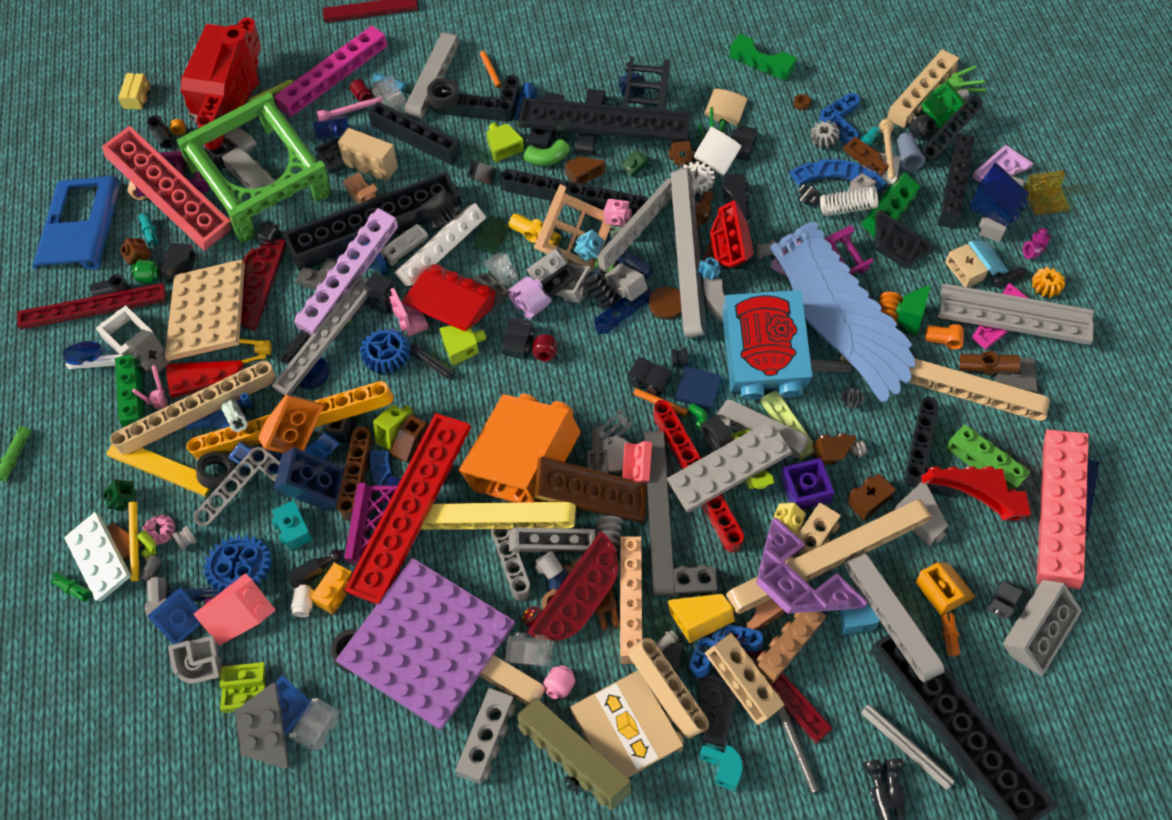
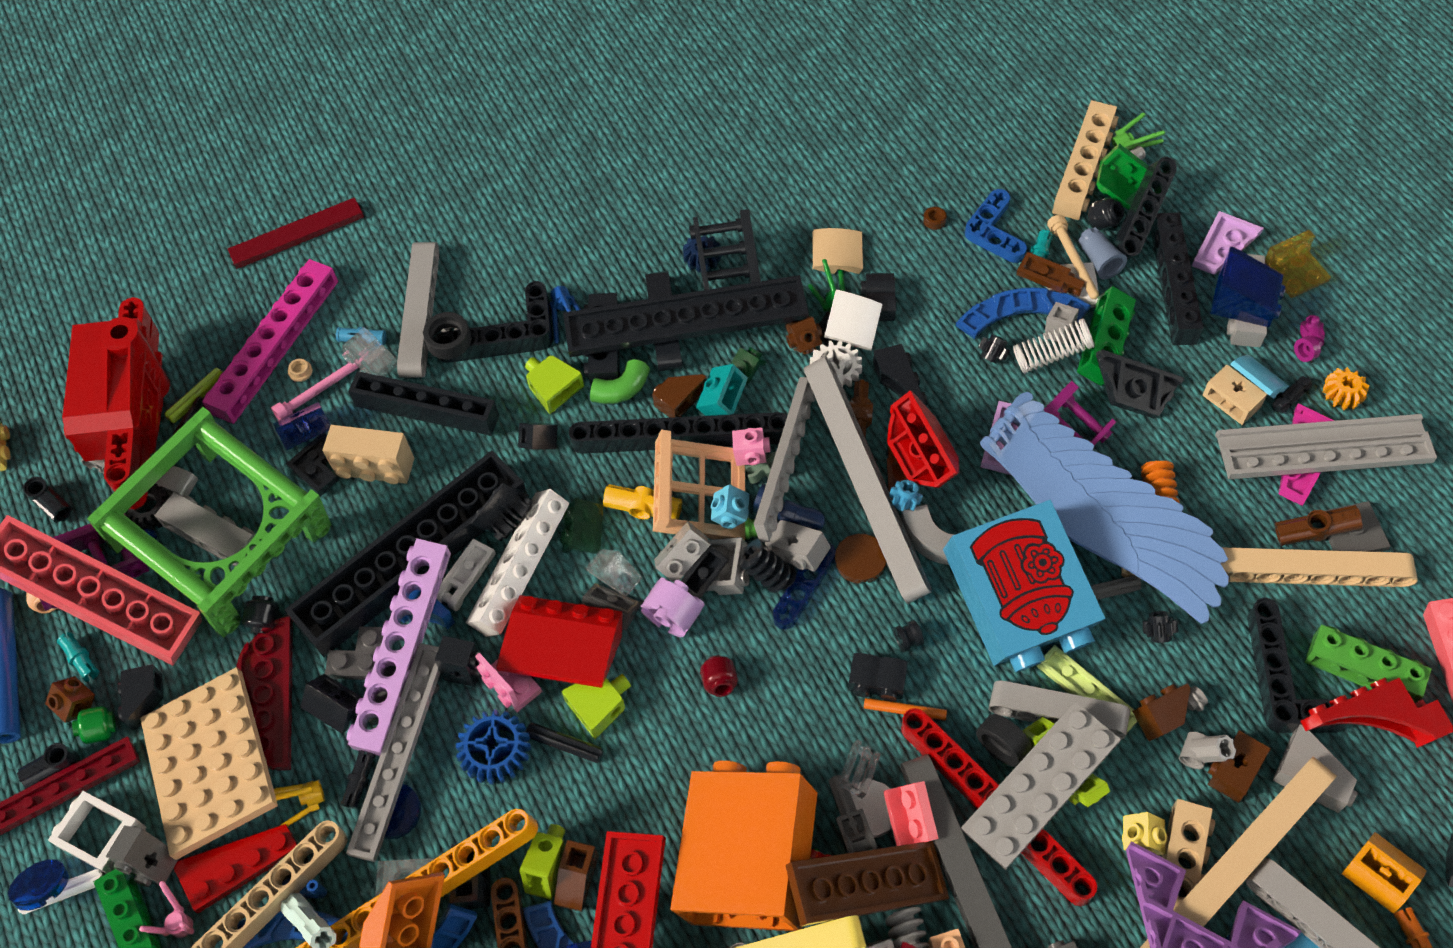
camera: 15 degrees left, 0 degrees up
(178, 127) = (71, 484): light orange bush -> none
(292, 296) = (330, 702): none -> black hinge
(343, 94) = (300, 370): none -> tan plate
(359, 189) = (374, 510): nougat arch -> none
(360, 90) = (324, 359): dark red brick -> none
(484, 56) = (497, 279): orange bar -> none
(518, 337) = (675, 671): black brick -> none
(612, 173) = (722, 391): none -> teal brick
(698, 387) = (949, 672): dark blue tile -> none
(700, 413) = (969, 713): green arm -> none
(764, 249) = (966, 442): light grey bush -> none
(777, 65) = (885, 175): green arch -> none
(807, 484) = (1150, 776): dark purple brick -> none
(825, 134) = (982, 250): light grey gear -> none
(851, 478) = (1202, 749): none -> light grey piece
(912, 309) = (1196, 479): green slope -> none
(950, 335) = (1252, 500): orange piece -> none

